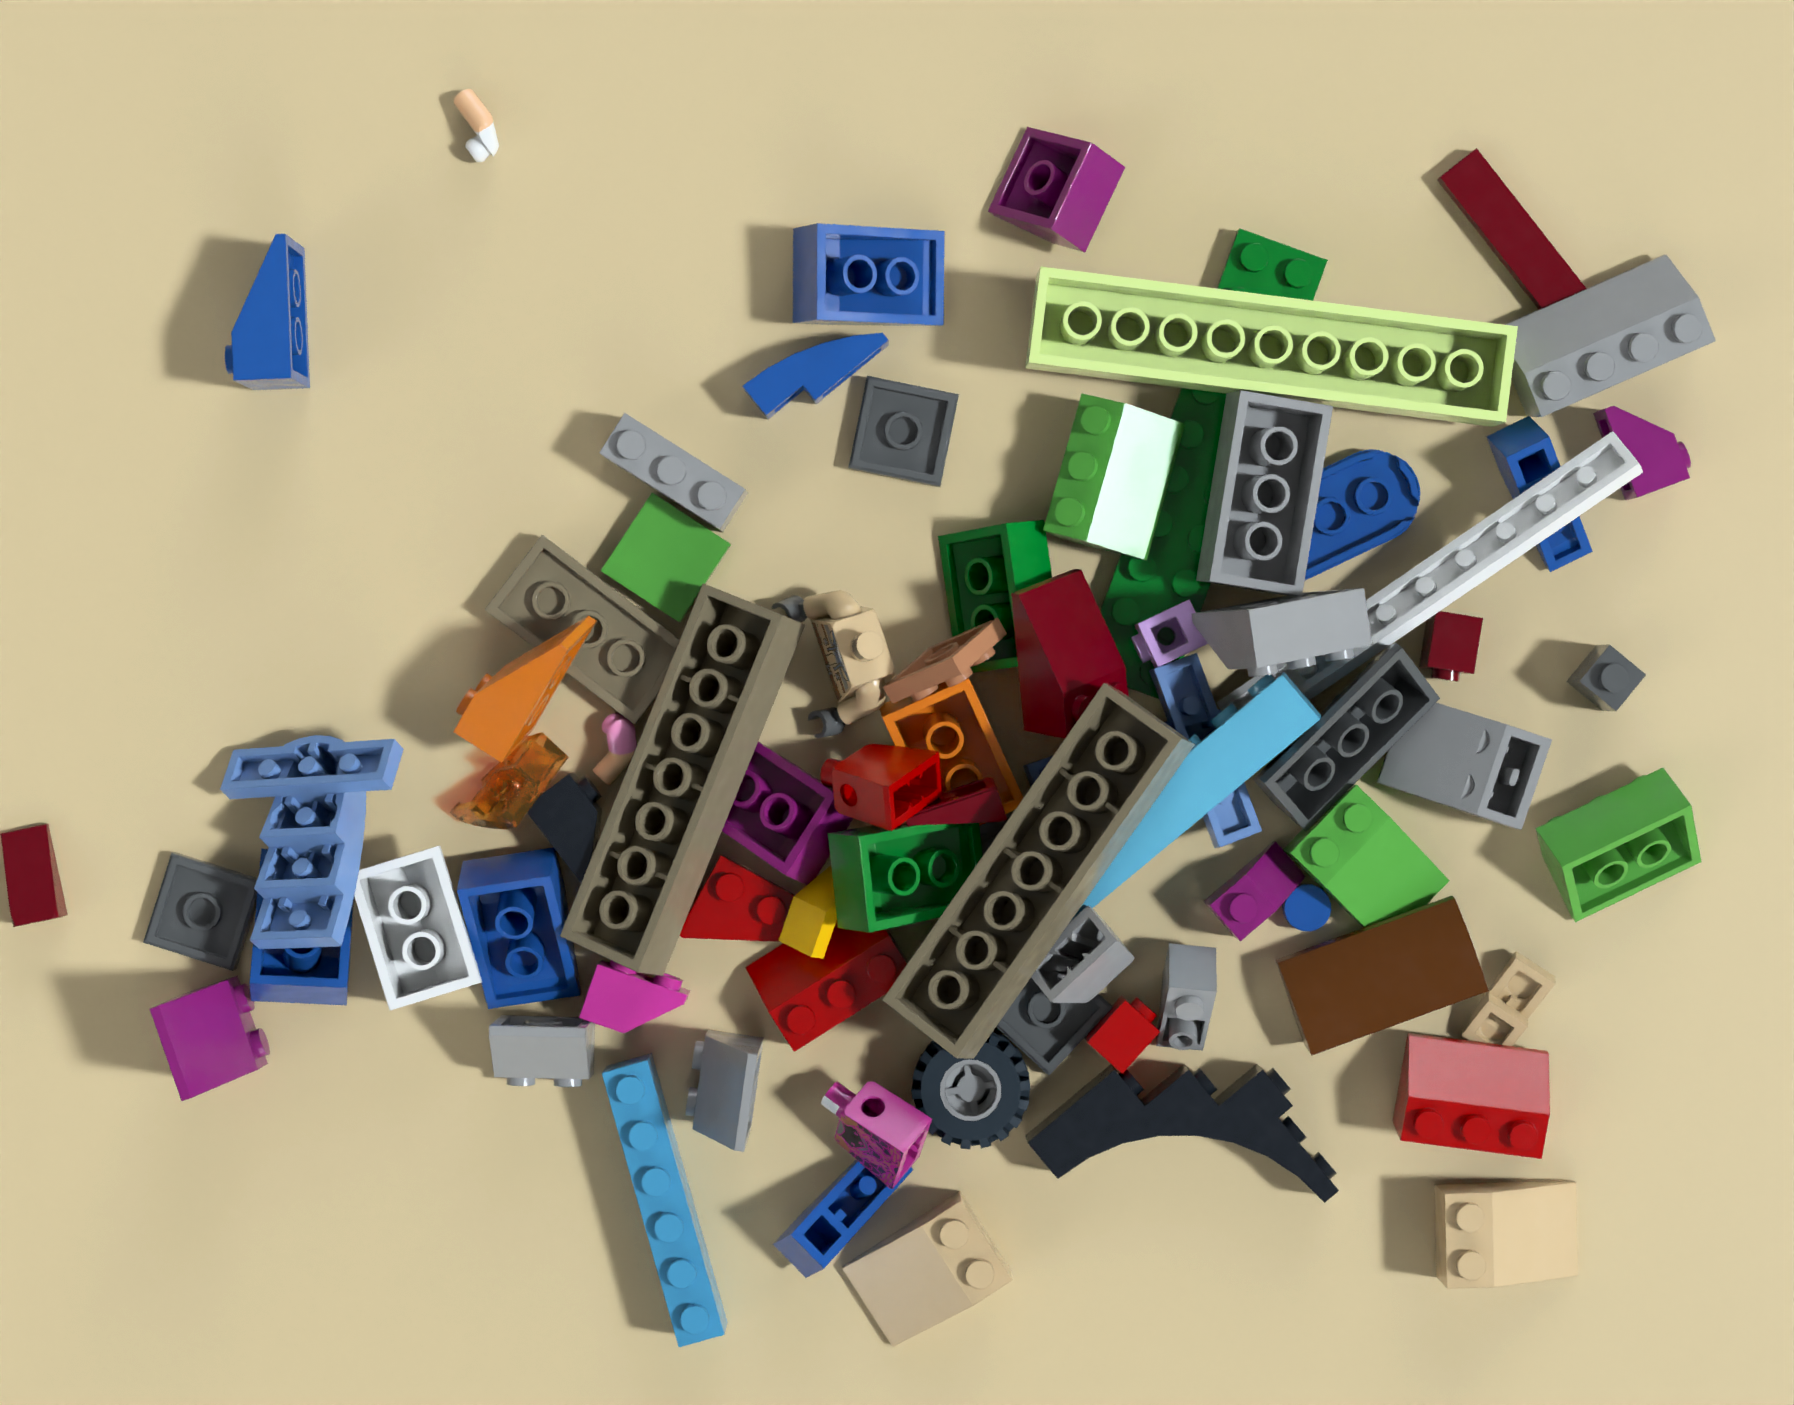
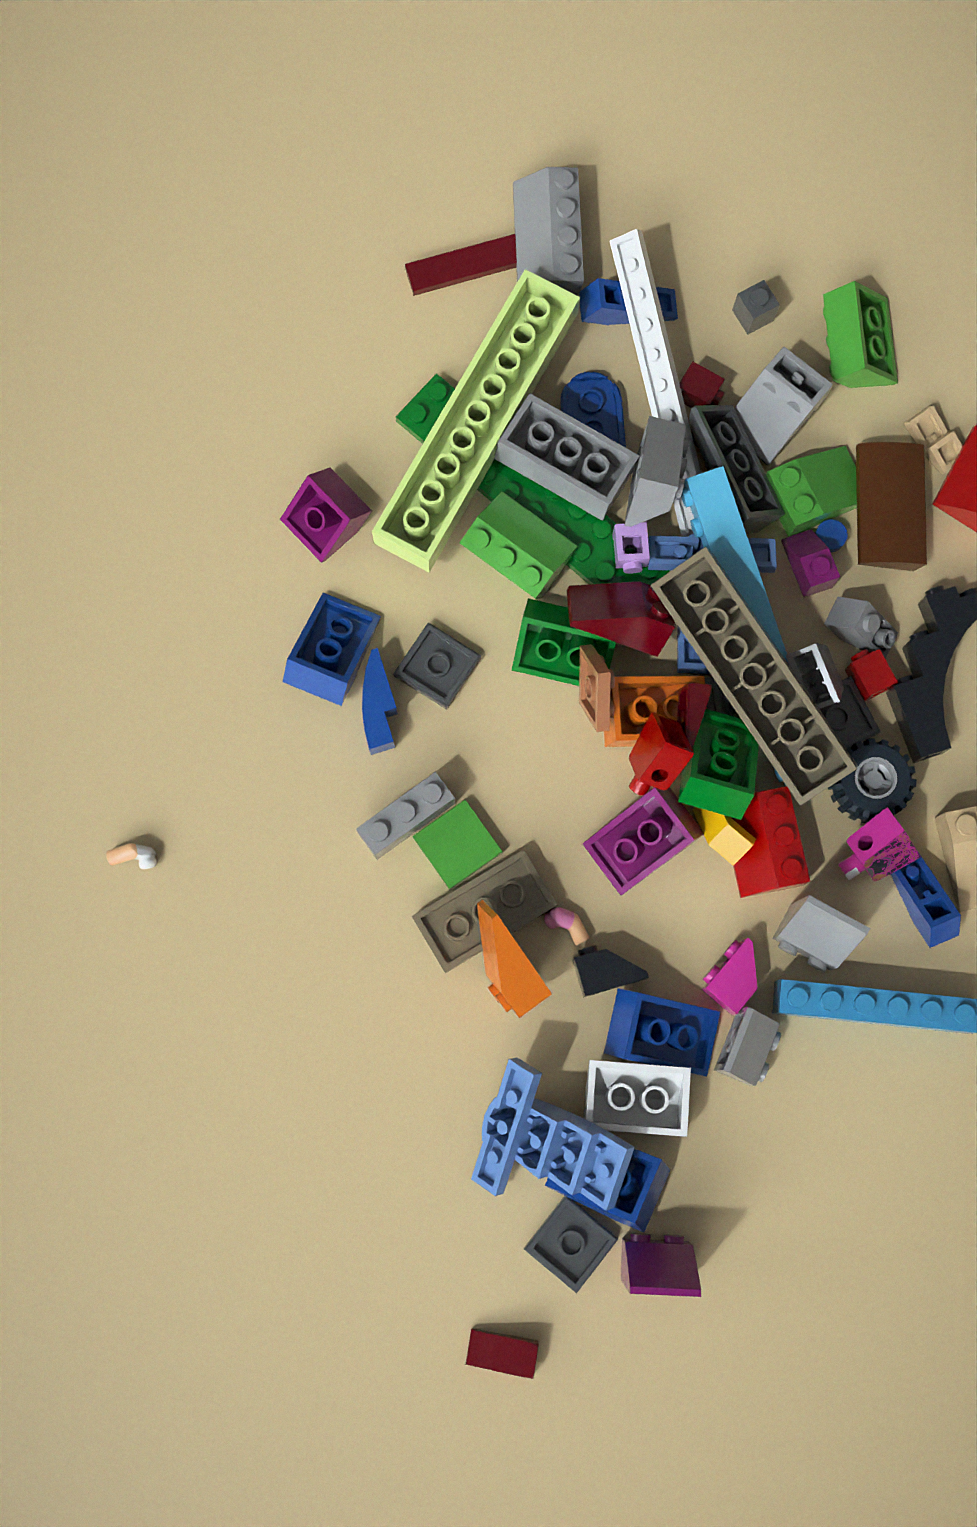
camera: 75 degrees left, 10 degrees down
(272, 328) = (208, 1039): blue slope -> none
(513, 785) = (569, 1000): clear orange slope -> none
(682, 781) = (607, 886): dark tan brick -> none
(738, 906) = (700, 886): red wing -> none
(852, 654) = (565, 746): tan torso -> none
(1656, 450) = (623, 224): magenta slope -> none

